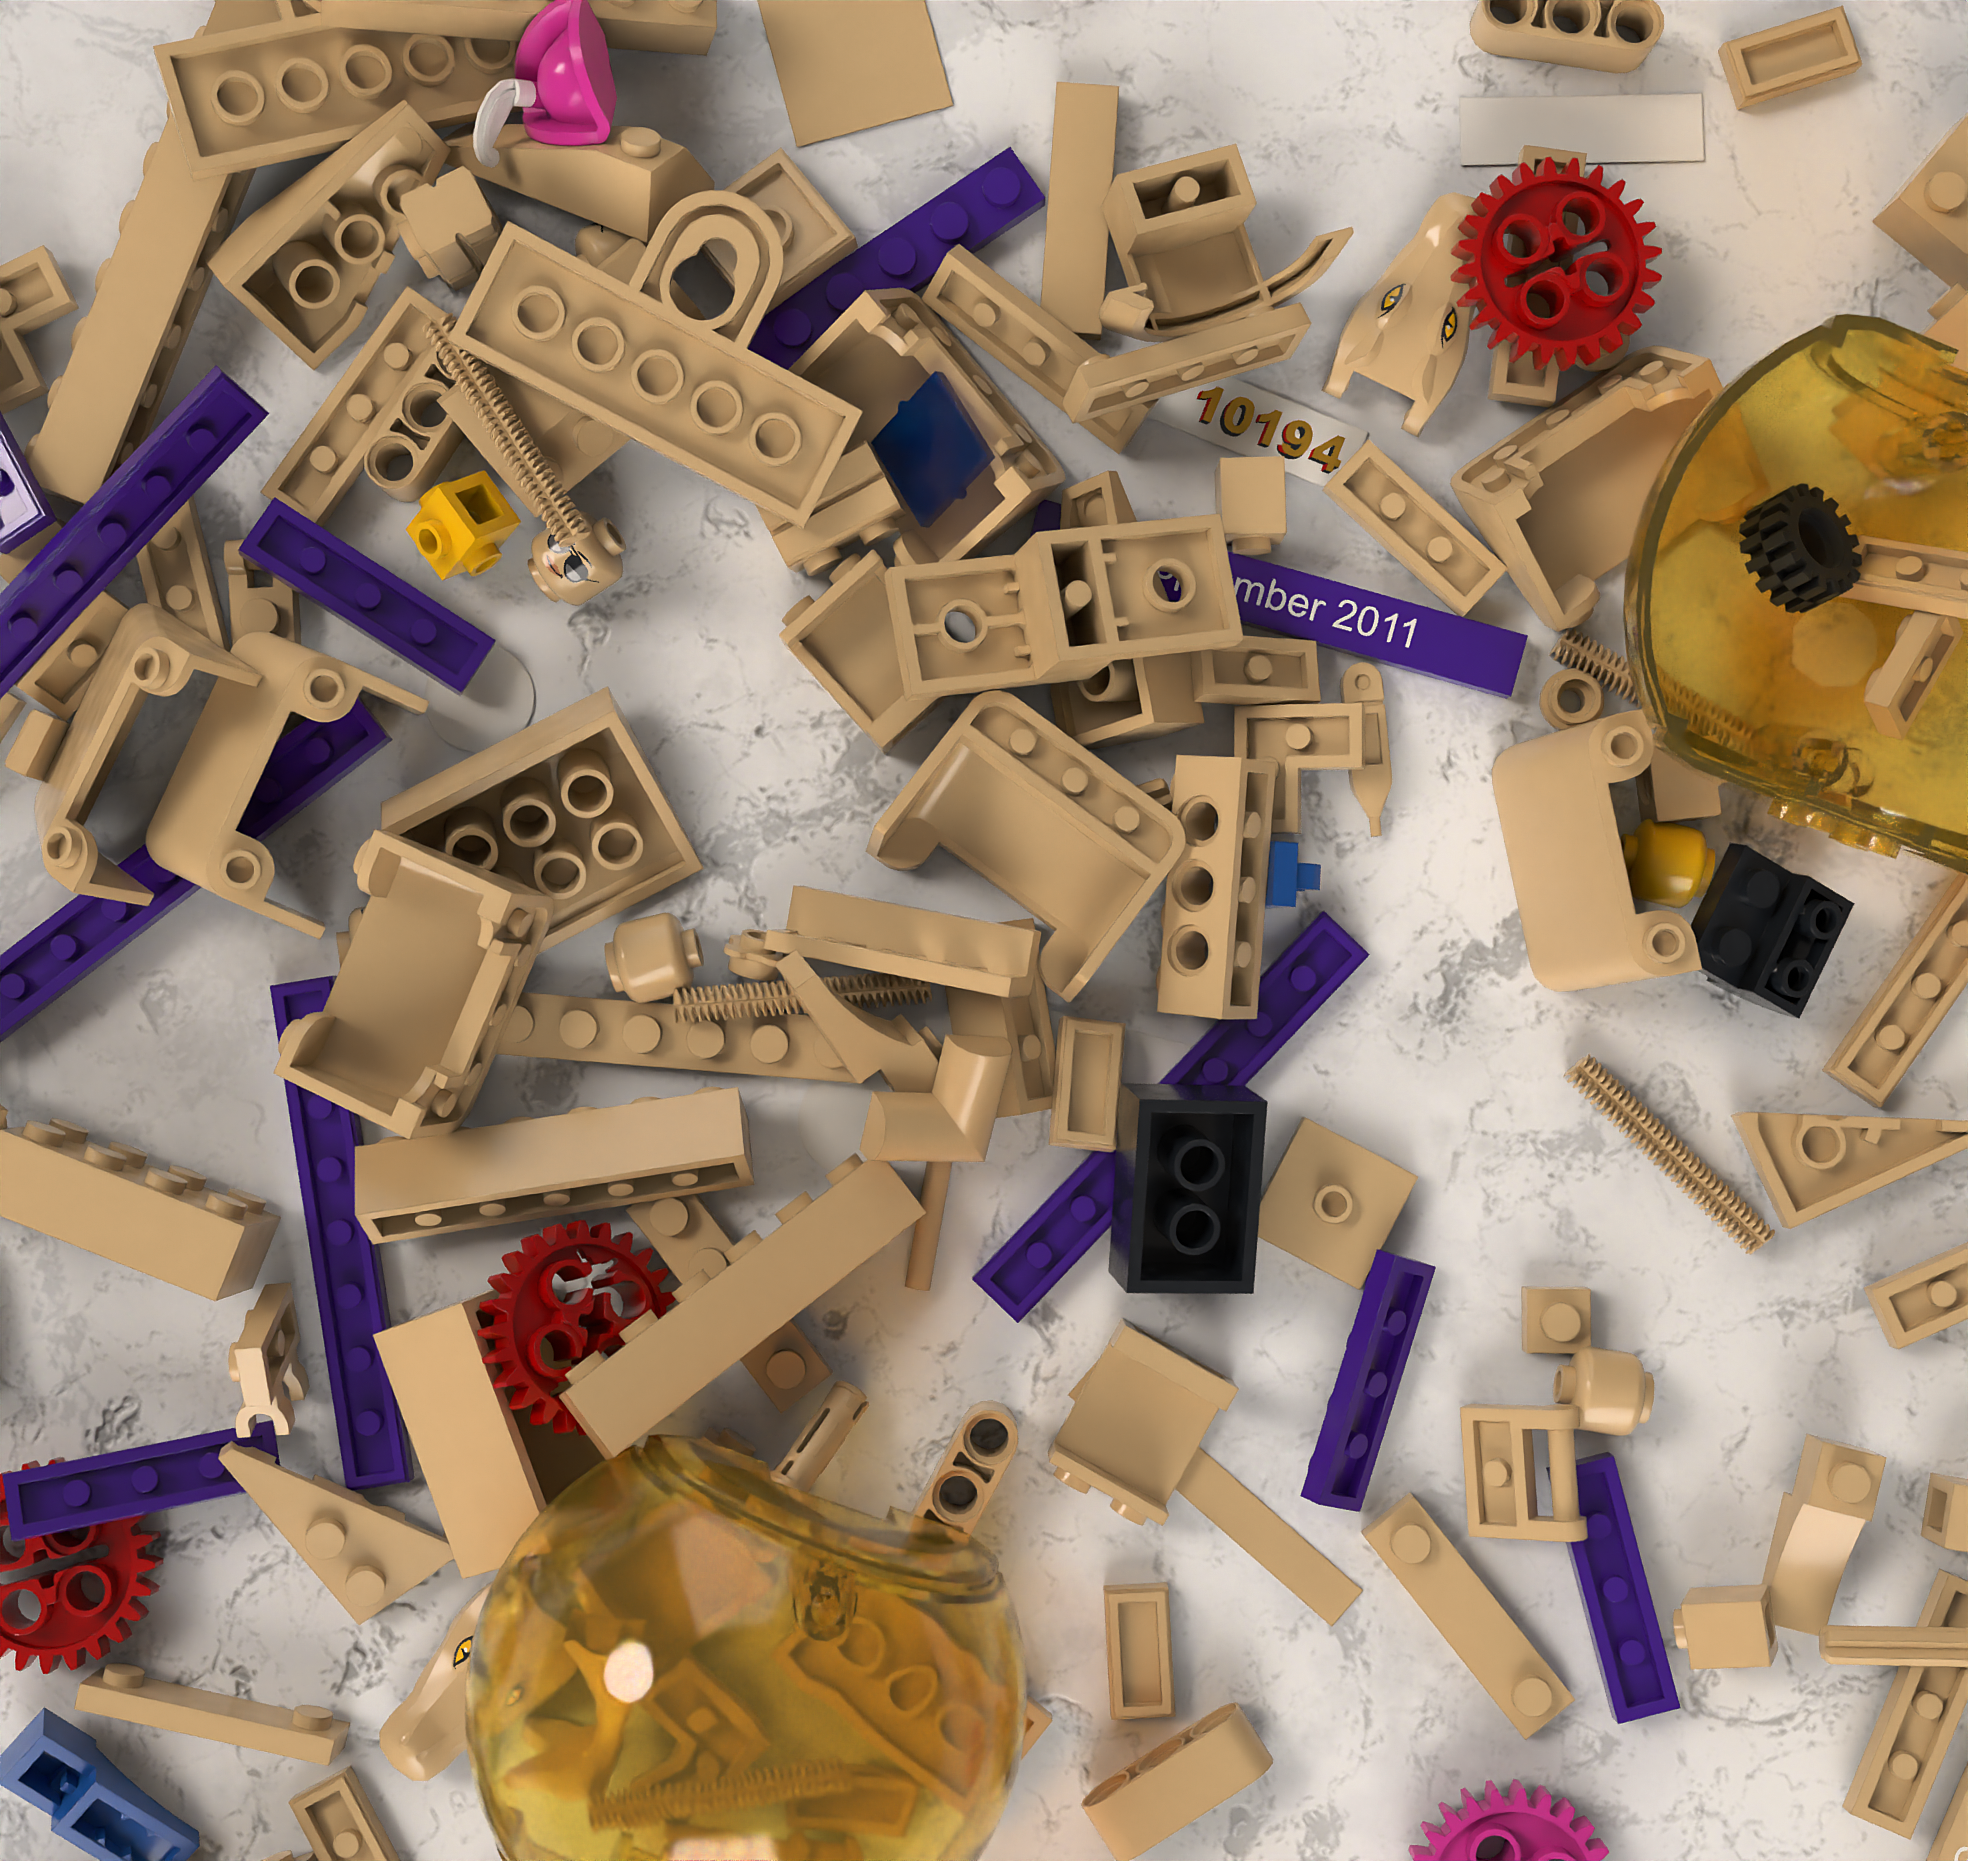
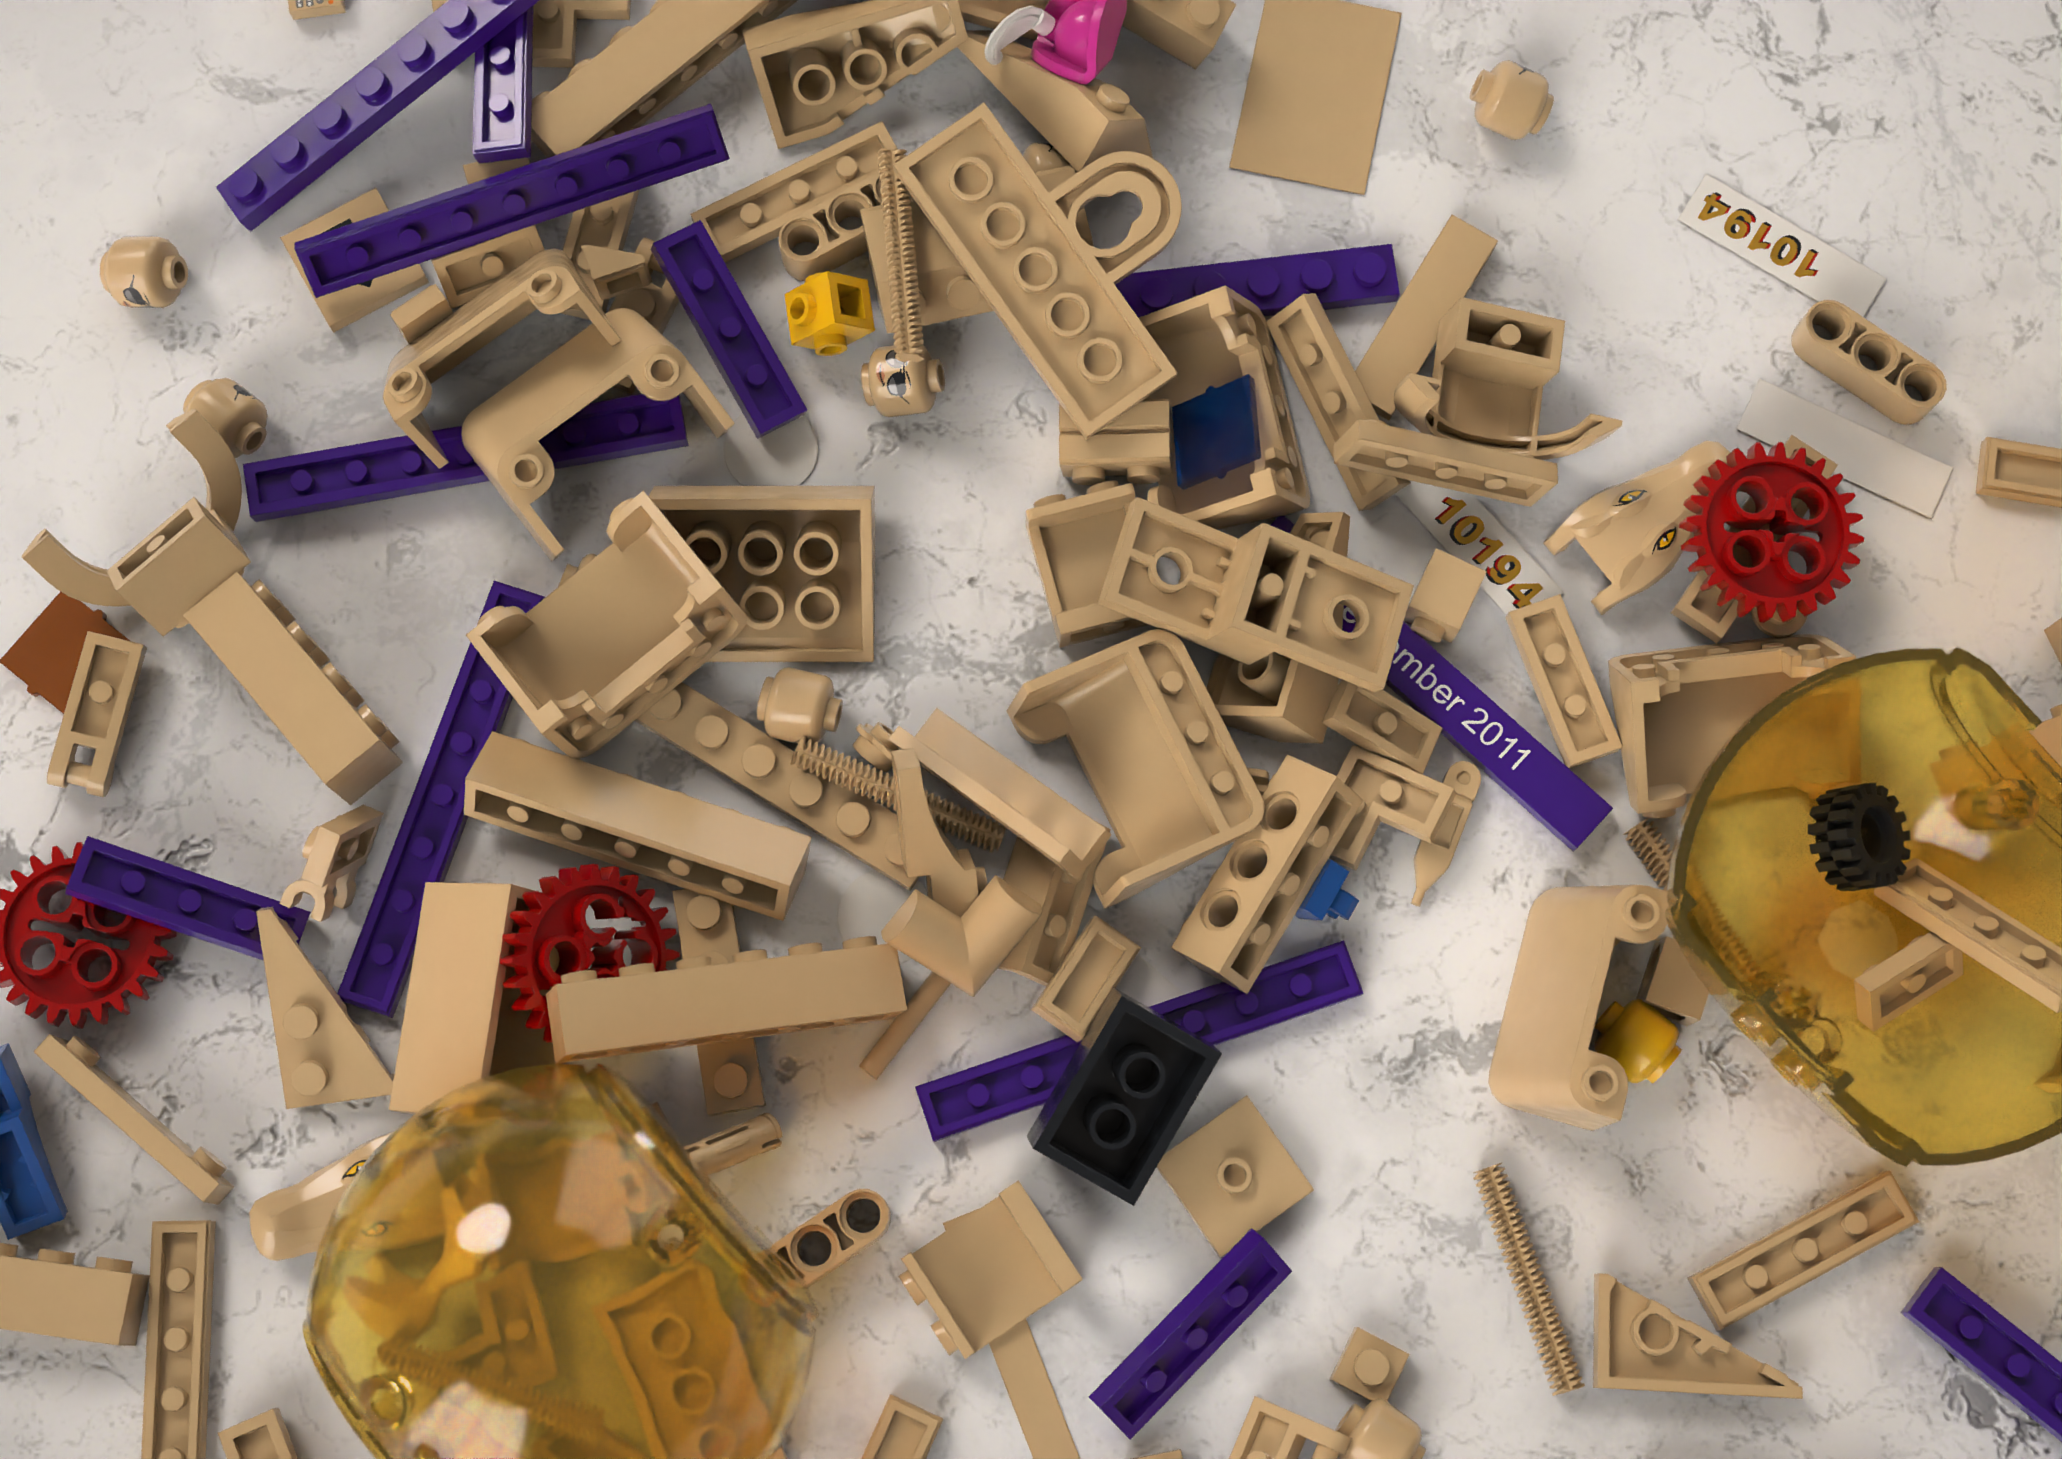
camera: 25 degrees right, 10 degrees down
(215, 599) = (616, 270): none -> tan slope
(450, 228) = (936, 91): tan brick -> none
(807, 226) = (1205, 224): tan plate -> none
(1581, 683) = (1624, 859): tan plate -> none
(1766, 930) = (1691, 1134): black brick -> none

